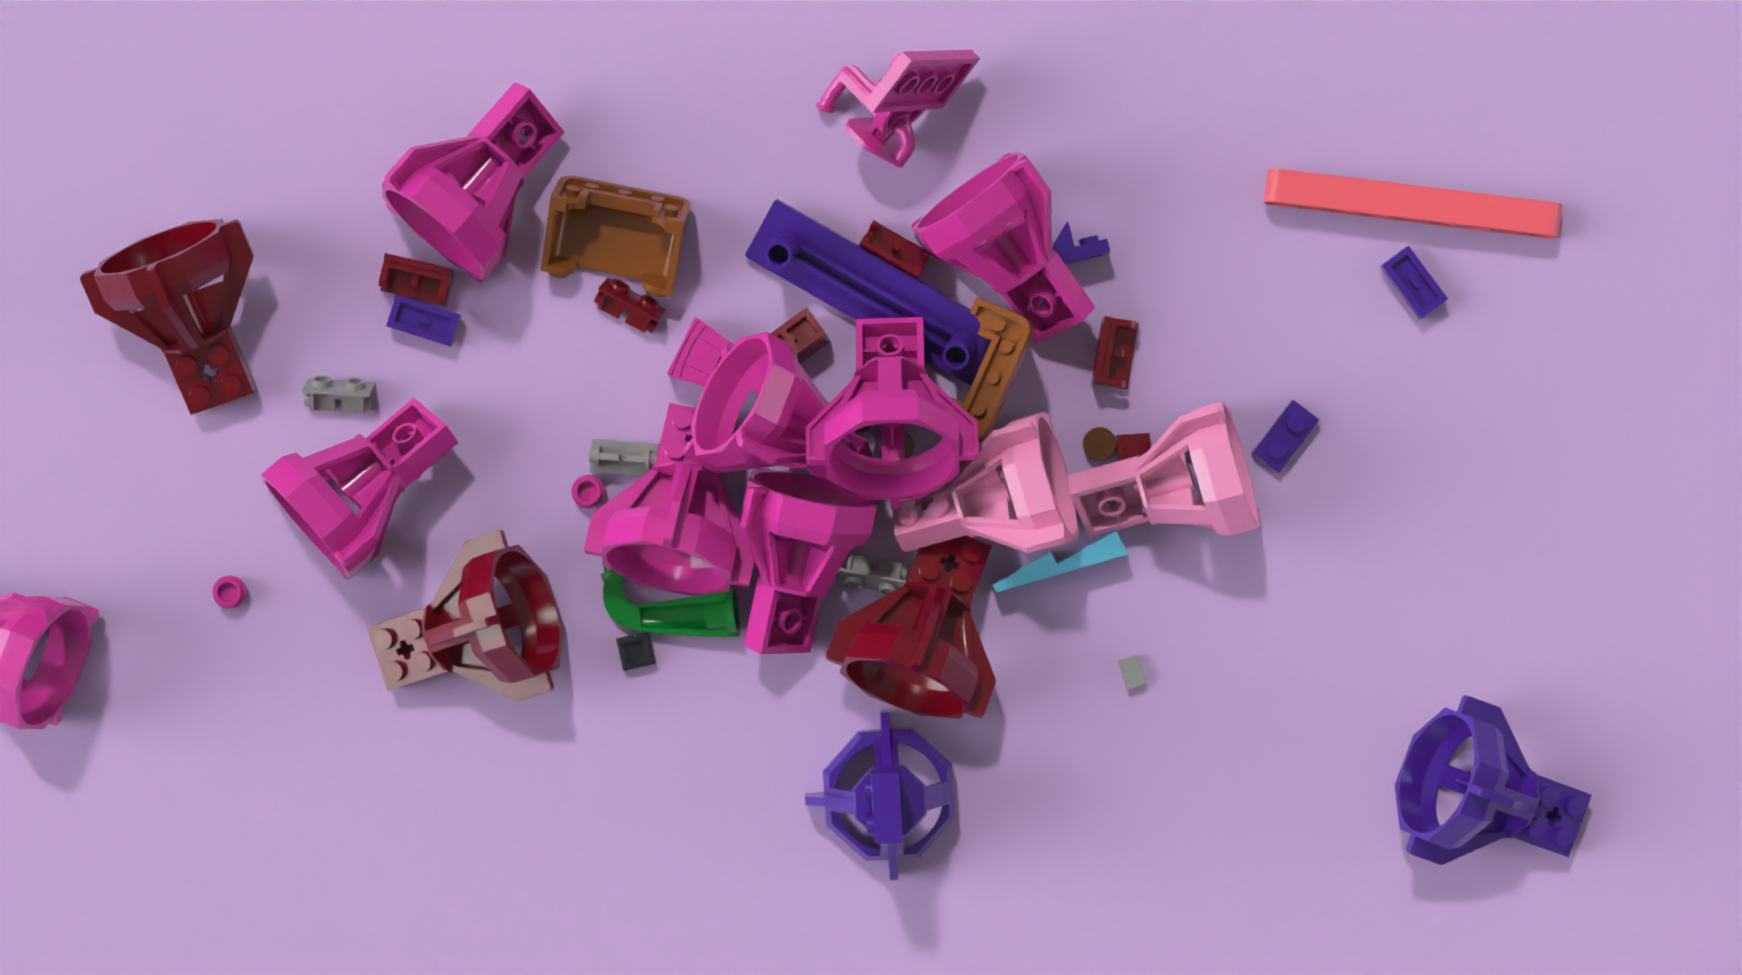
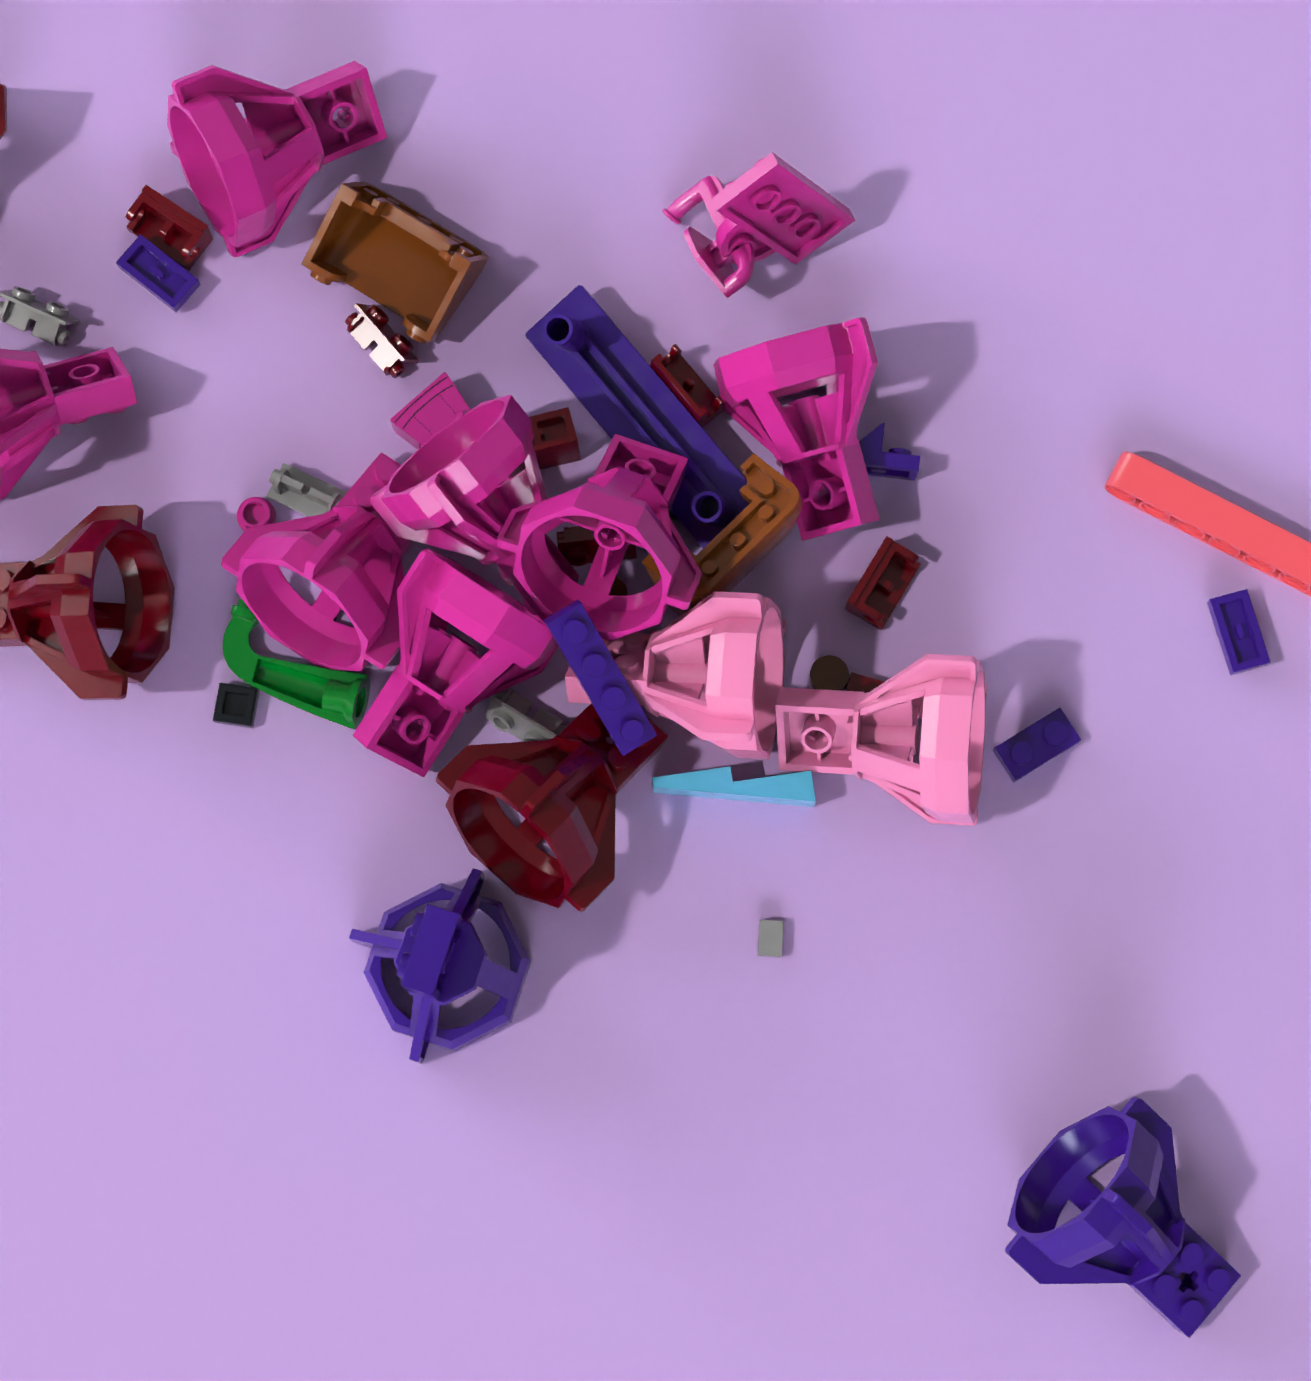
camera: 20 degrees right, 10 degrees down
(925, 530) = (600, 677): none -> dark purple plate

